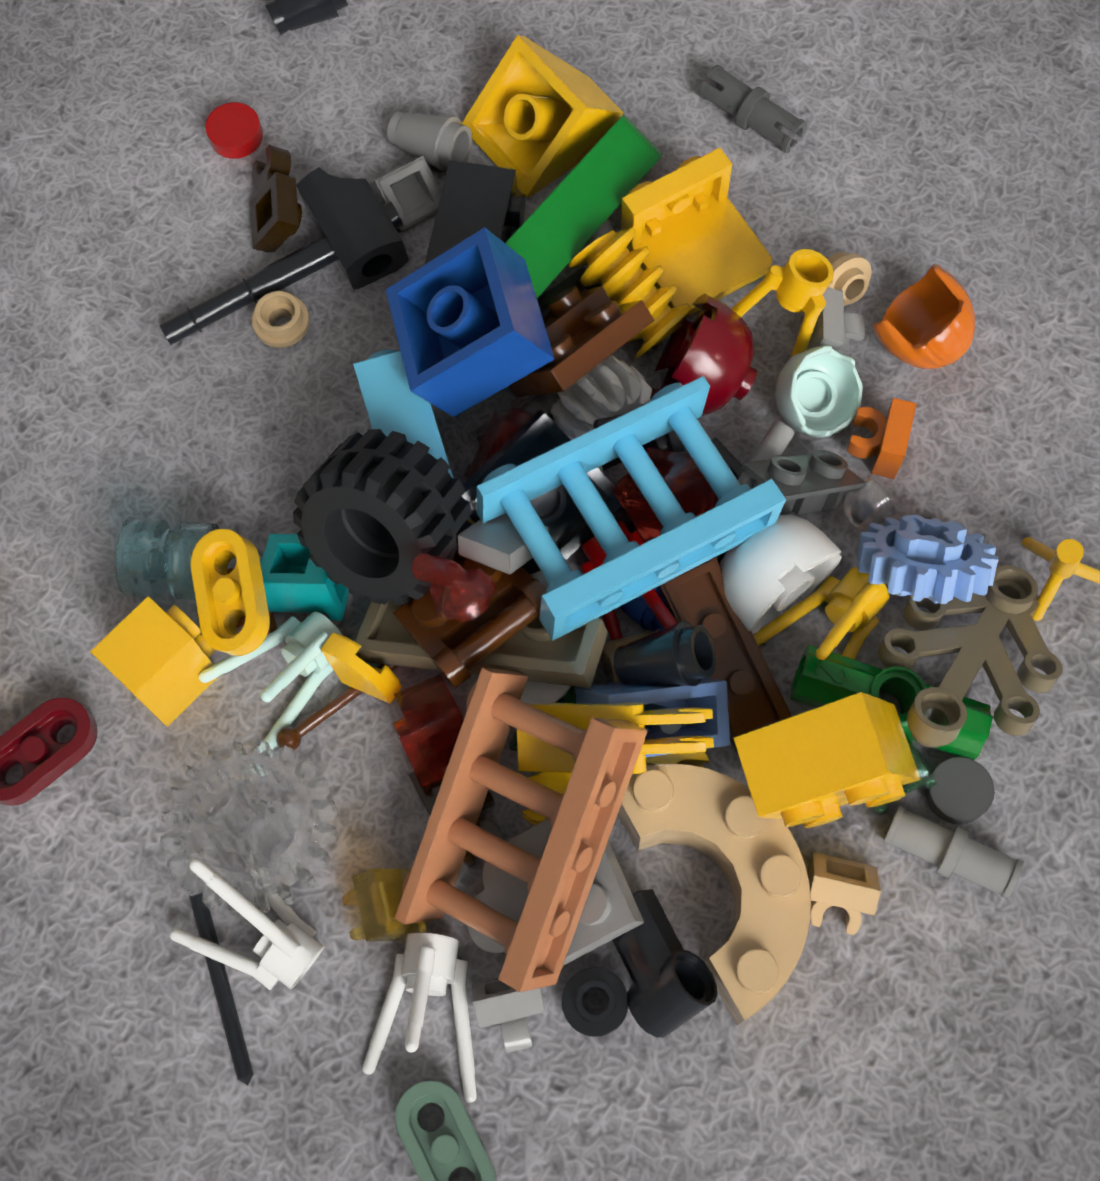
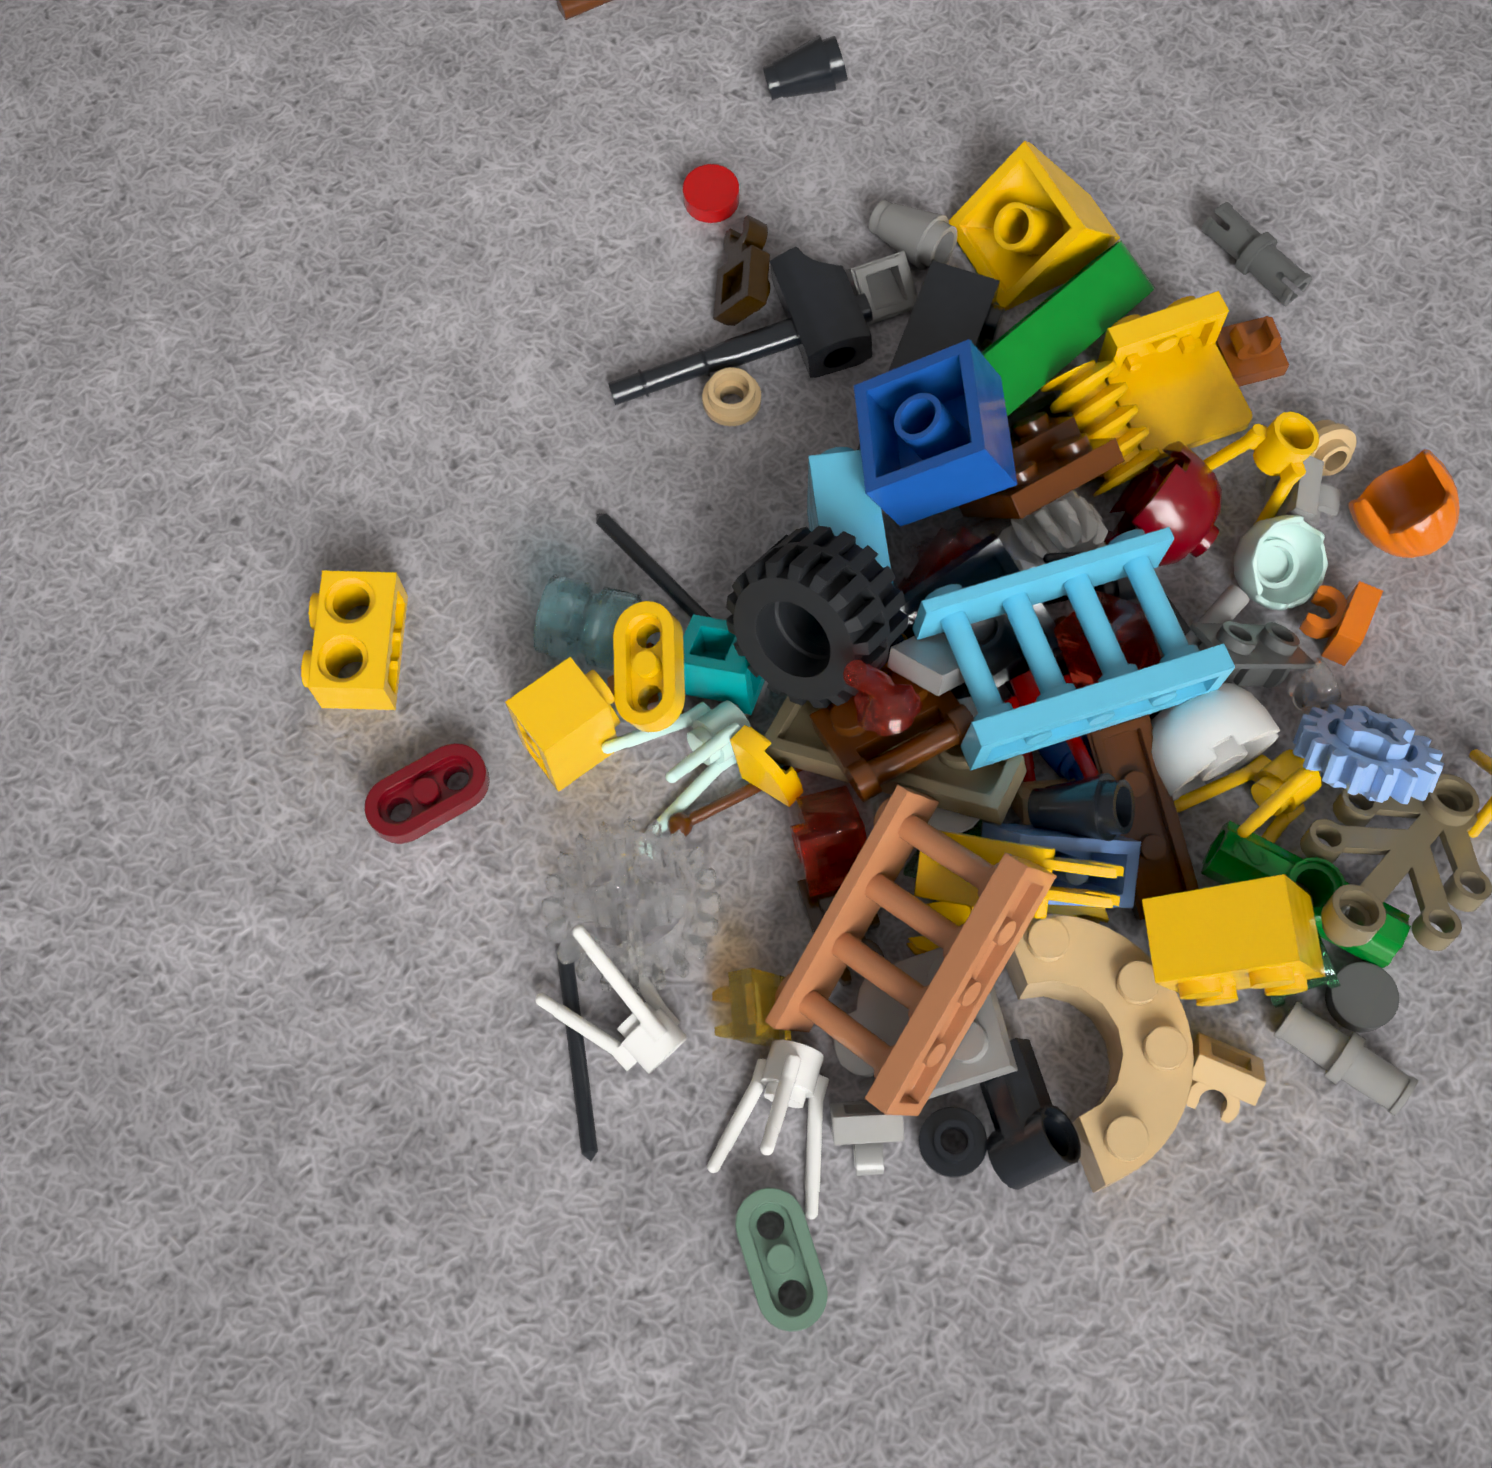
camera: 10 degrees right, 0 degrees up
(225, 493) = (649, 566): none -> black axle
(763, 199) = (1253, 350): none -> dark orange tile

